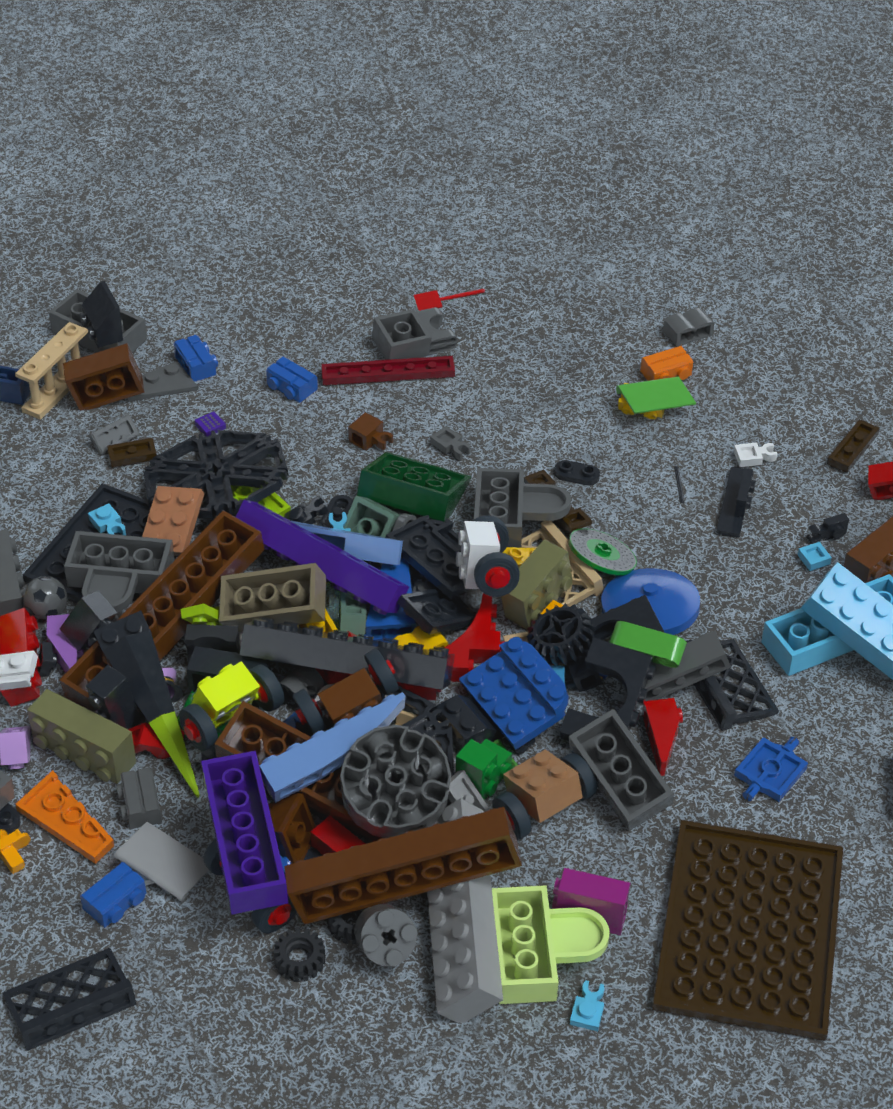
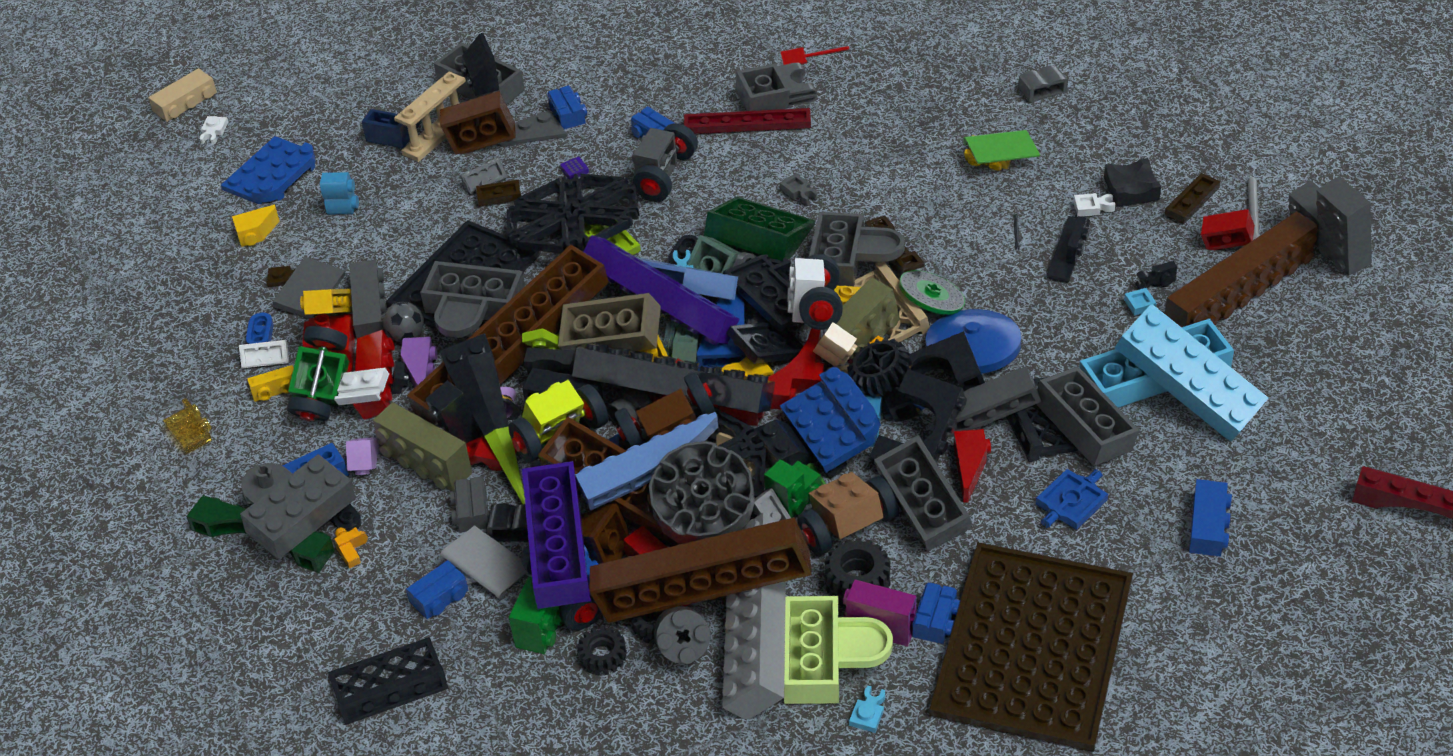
camera: 10 degrees right, 0 degrees up
(60, 814) = (399, 518): orange wing -> none
(88, 615) = (436, 336): black brick -> none
(107, 520) = (467, 253): medium azure plate -> none
(174, 515) = (528, 248): nougat plate -> none
(187, 817) = (508, 523): none -> black brick
(221, 932) = (533, 627): none -> green brick
(300, 412) = (658, 157): none -> brick
(306, 513) = (654, 250): black plate -> none
(368, 431) = (721, 177): reddish brown brick -> none
(513, 613) = (836, 345): none -> tan brick
(559, 840) = (851, 557): none -> black tyre
(577, 472) = (917, 219): black plate -> none
(646, 898) = (935, 613): none -> blue brick
(664, 647) = (973, 379): bright green beam -> none
(667, 364) = (1017, 118): orange brick -> none
(777, 680) = (1086, 416): none -> dark grey brick
(791, 430) = (1132, 183): none -> black brick

